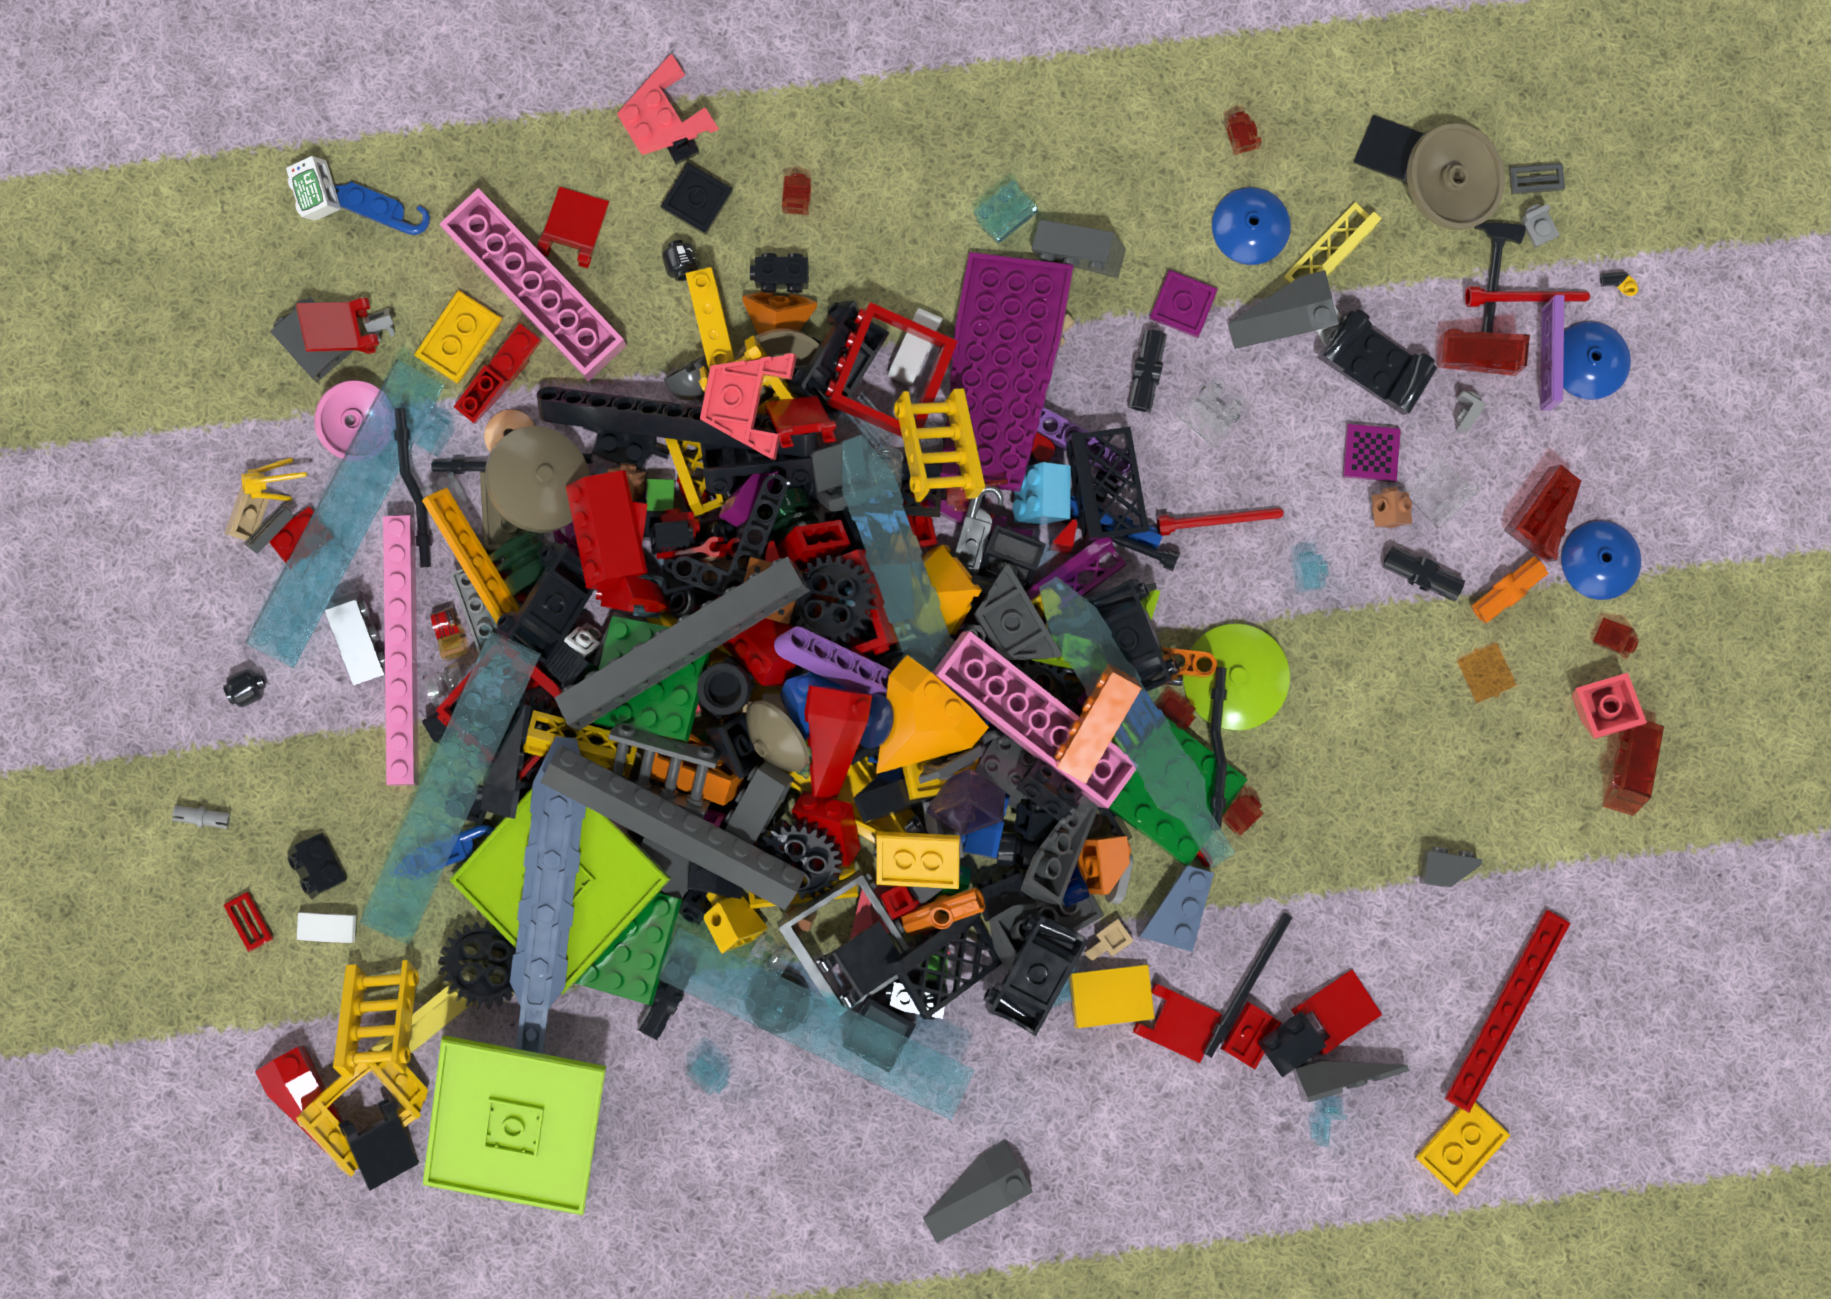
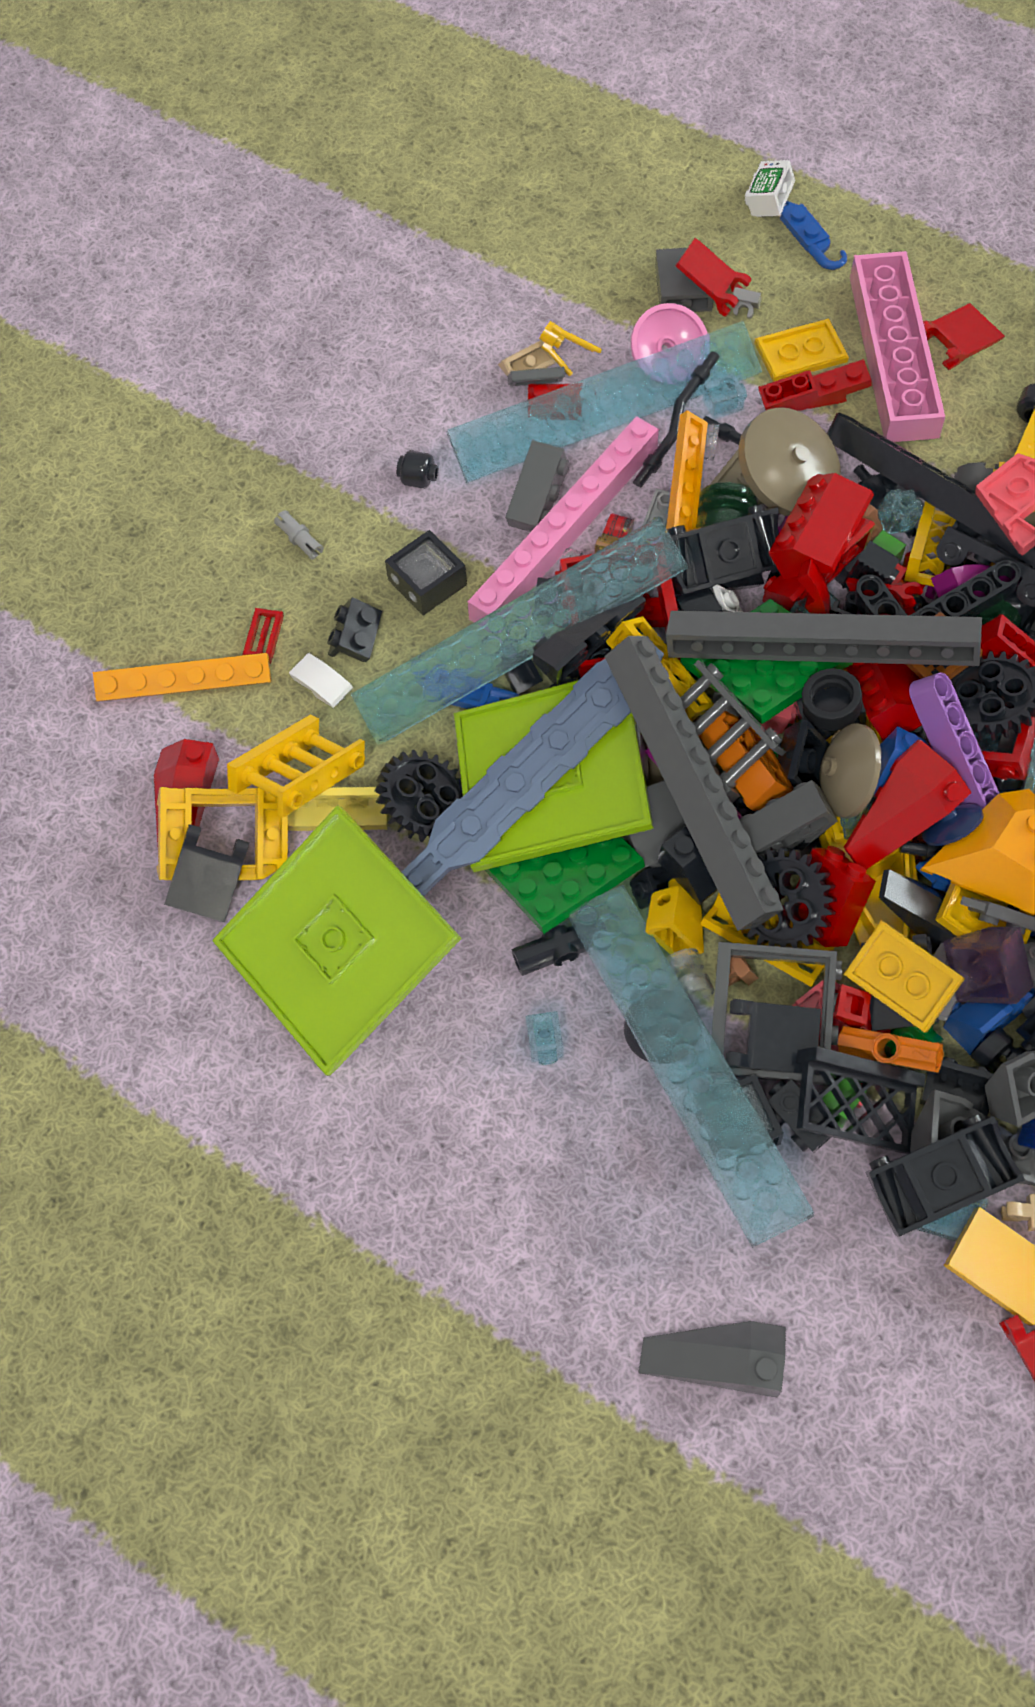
camera: 45 degrees right, 20 degrees down
(219, 1005) = (181, 677): none -> light orange plate
(331, 779) = (426, 572): none -> black piece
(647, 466) = (899, 511): none -> clear light blue brick

